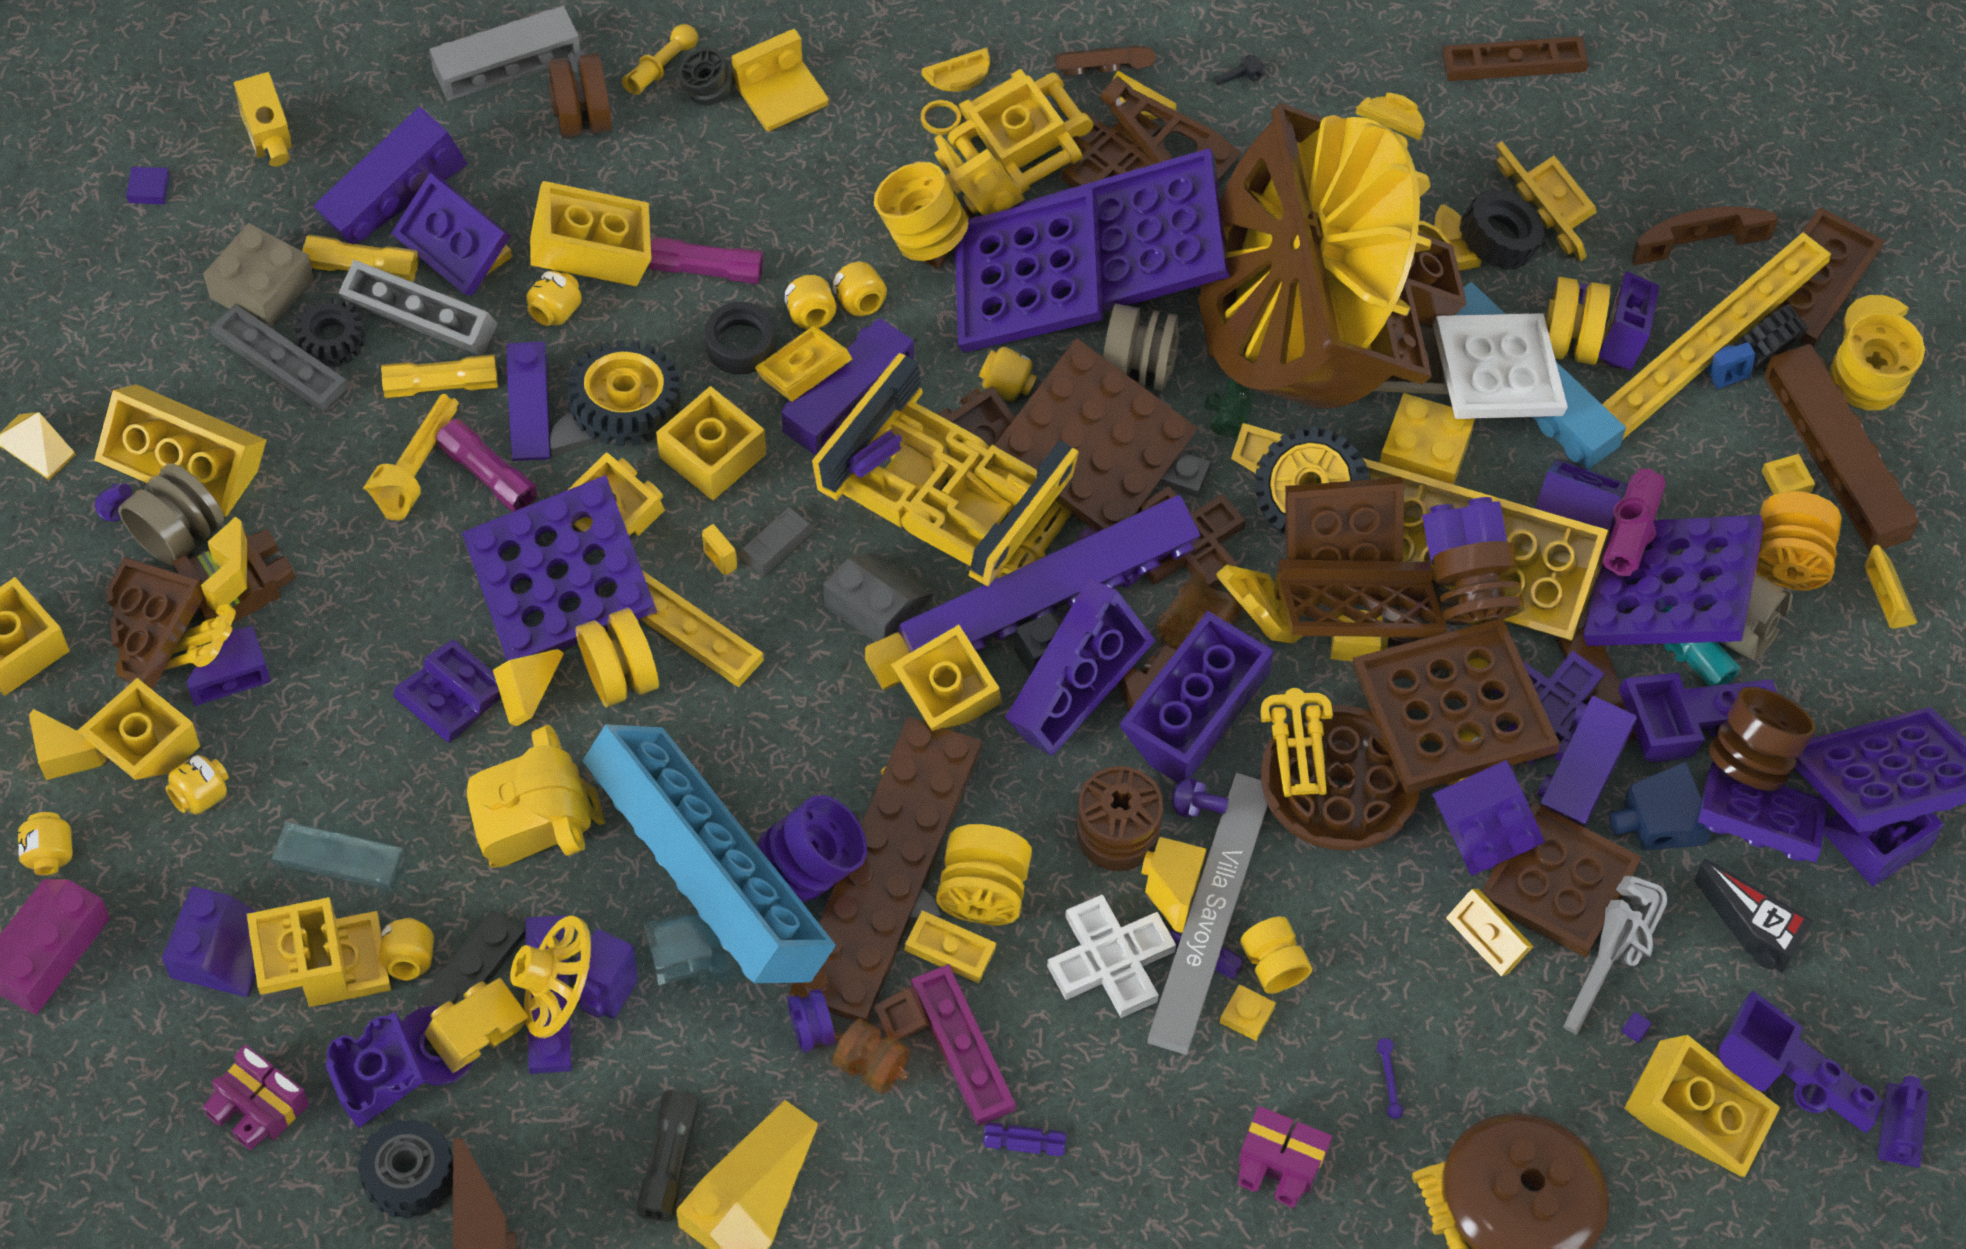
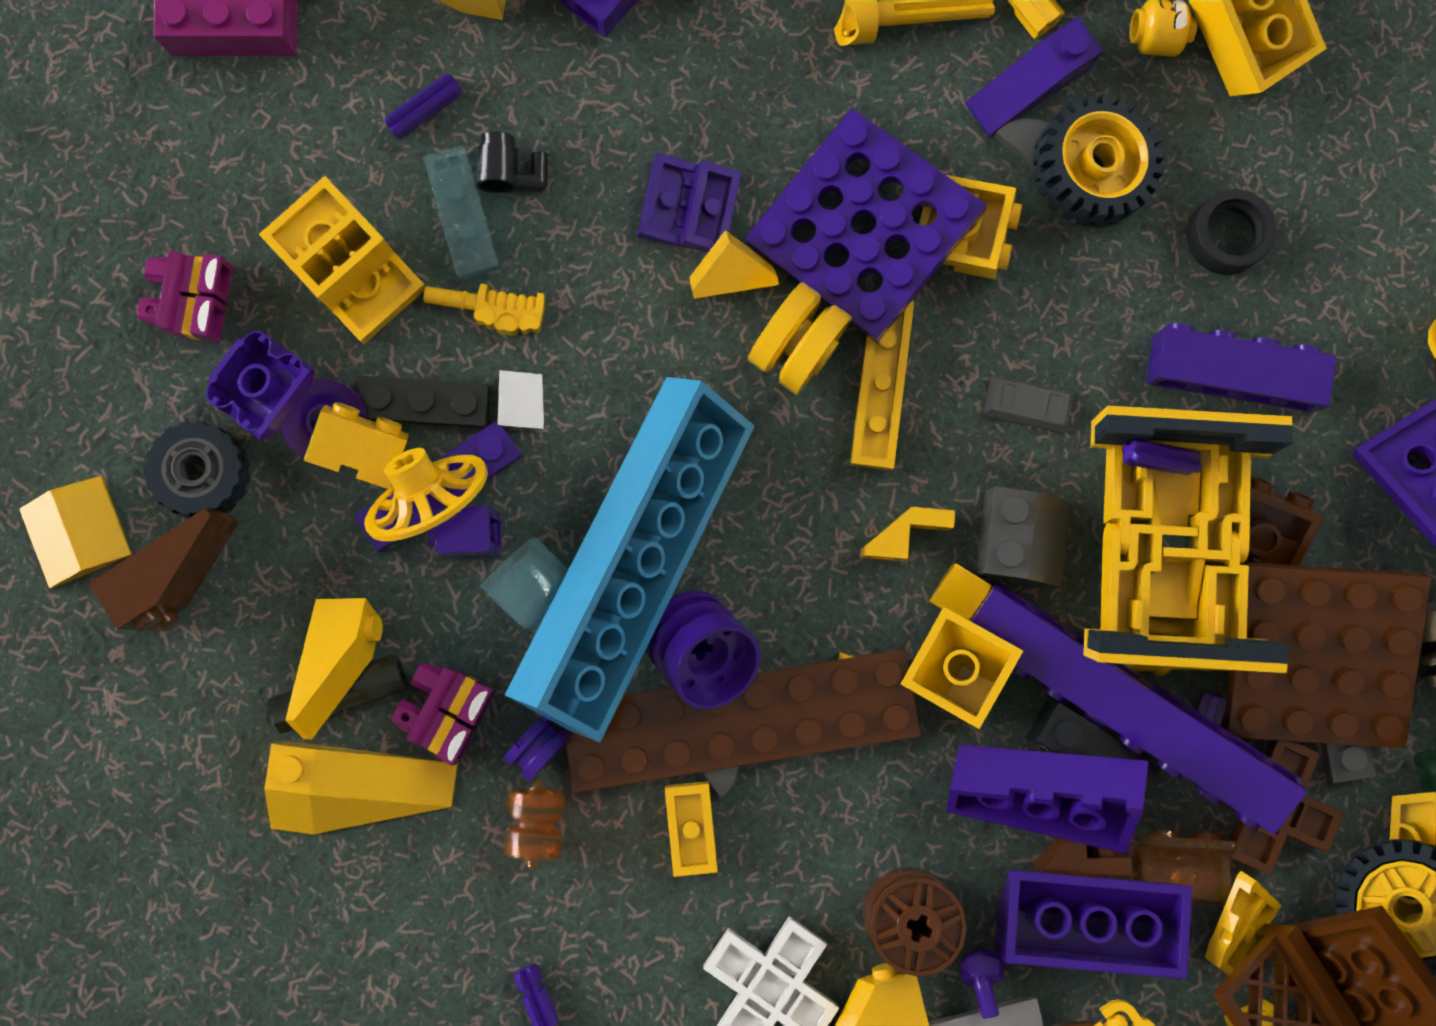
camera: 55 degrees right, 25 degrees up
(197, 784) = (454, 43): yellow head -> none
(212, 943) = (309, 148): dark purple slope -> none
(227, 840) = (423, 105): none -> dark purple axle
(321, 807) = (499, 166): none -> black piece
(406, 948) = (403, 333): yellow head -> none
(433, 877) = (498, 311): none -> yellow piece
(467, 449) = (941, 83): magenta axle -> none
(521, 894) = (520, 400): none -> white sticker
(532, 803) = (603, 358): yellow piece -> none
(633, 1123) = (333, 657): none -> yellow slope
(679, 256) = (1311, 171): magenta axle -> none
(711, 443) = (1092, 279): yellow brick -> none
(719, 550) = (981, 358): yellow tile -> none
(742, 1077) = (432, 725): none -> magenta hips
(803, 363) = (1237, 313): yellow tile -> none
(810, 301) = (1314, 274): yellow head -> none
(819, 681) = (894, 540): none -> yellow slope
(859, 289) = (1360, 313): yellow head -> none
(902, 1014) = (595, 825): reddish brown plate -> none
(963, 1045) = (599, 898): magenta plate -> none
(984, 874) = (773, 827): yellow wheel -> none
(1007, 373) = (1352, 517): yellow head -> none

